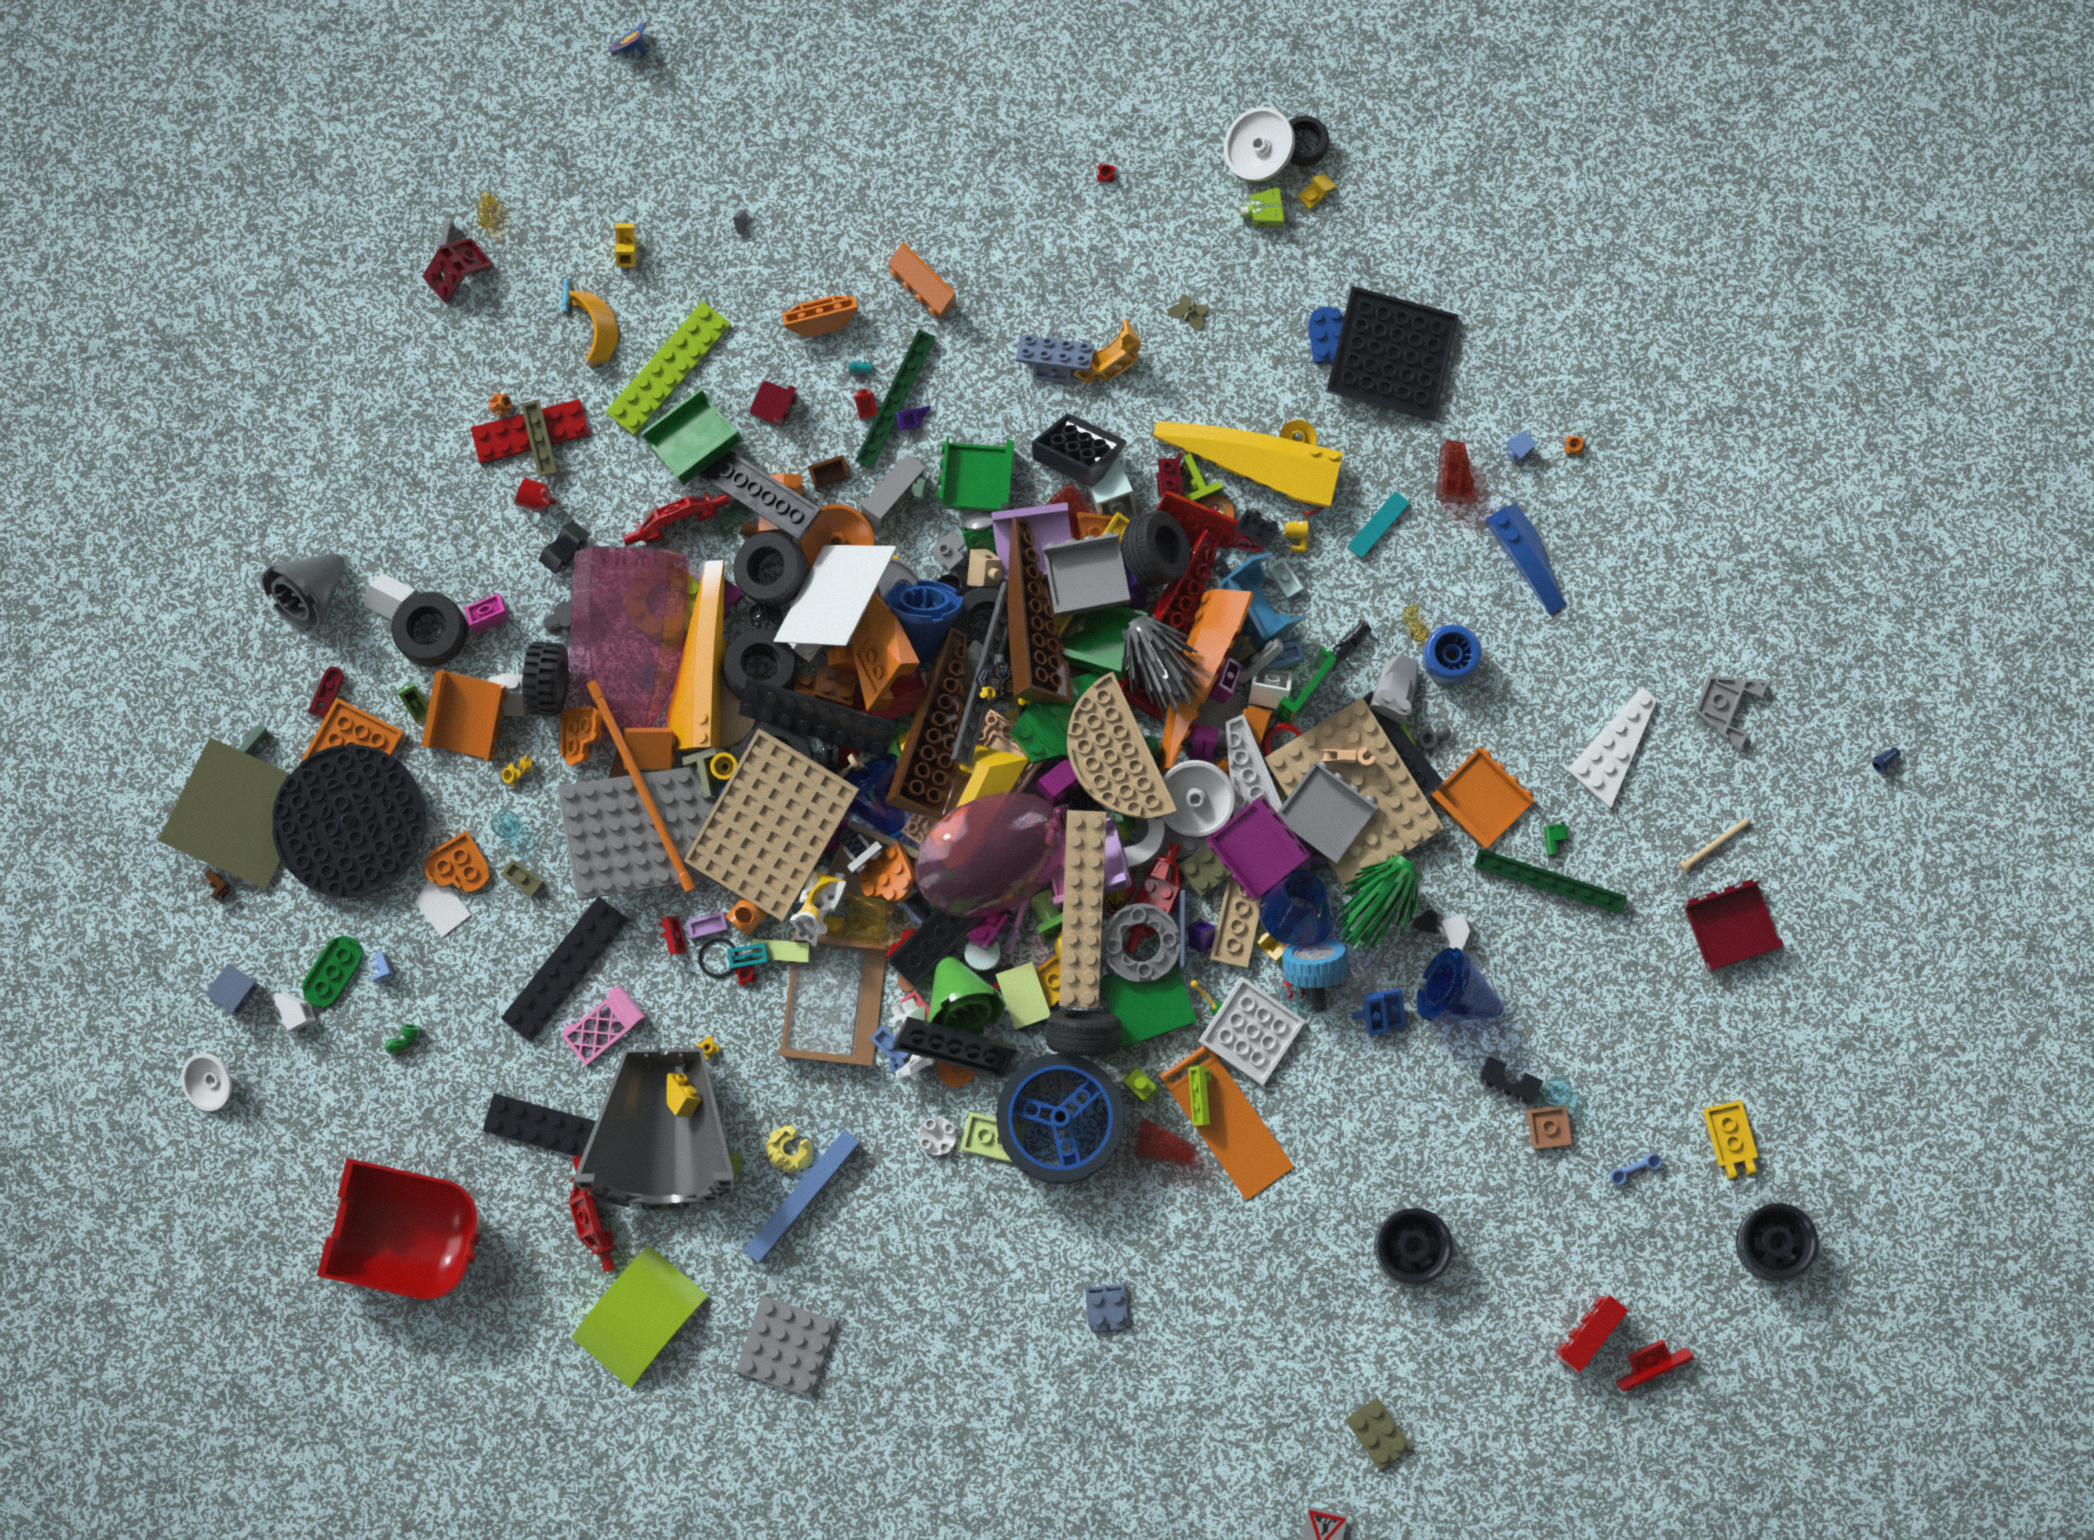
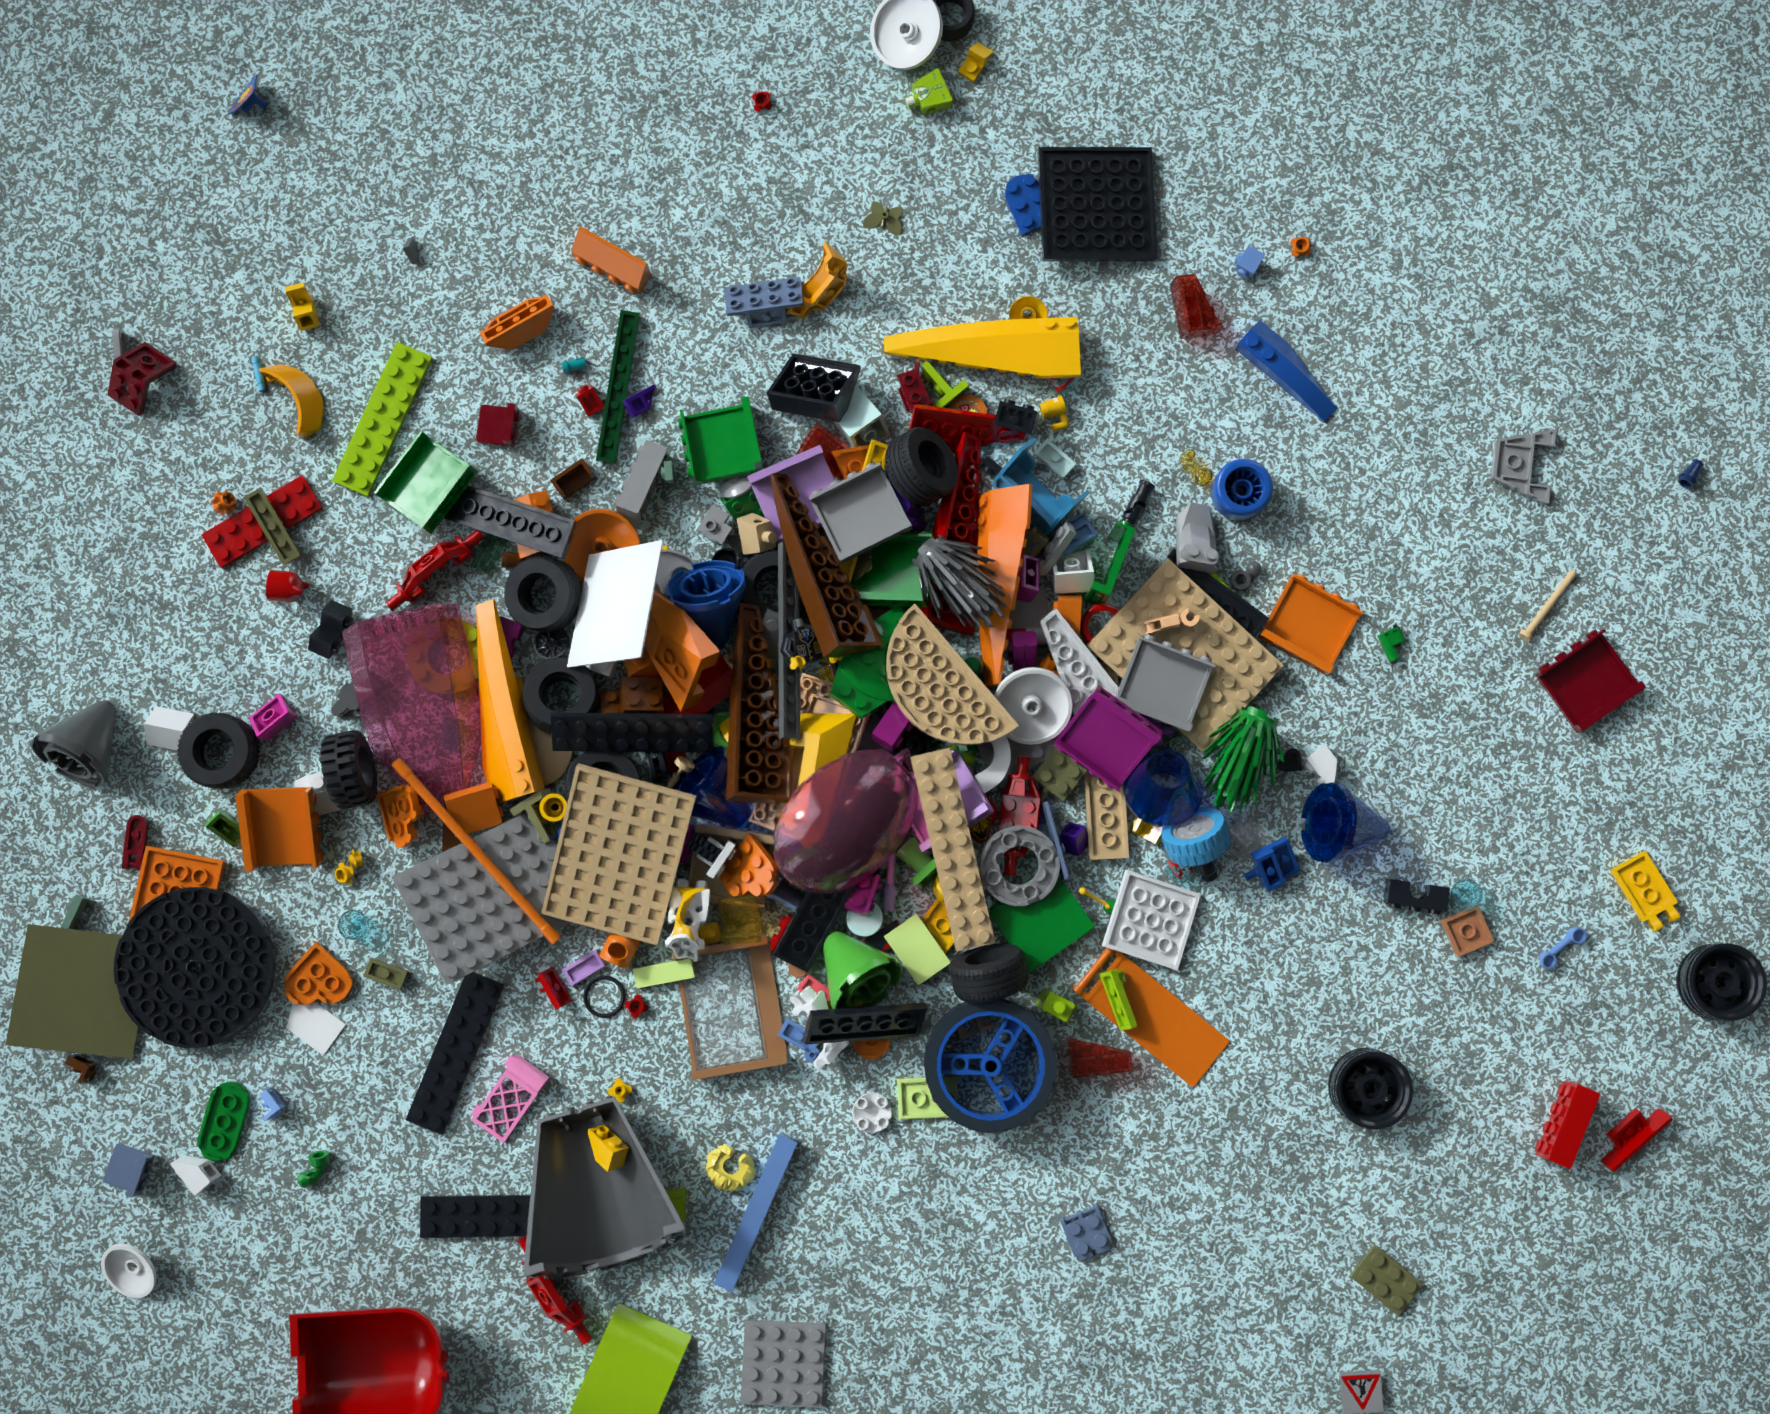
camera: 15 degrees left, 5 degrees up
(485, 218) = (153, 317): clear yellow arm -> none
(731, 958) = (648, 981): teal tile -> none
(1378, 525) = (1131, 379): teal tile -> none
(1550, 881) = (1399, 687): dark green plate -> none
(1609, 755) = (1421, 547): white wing -> none

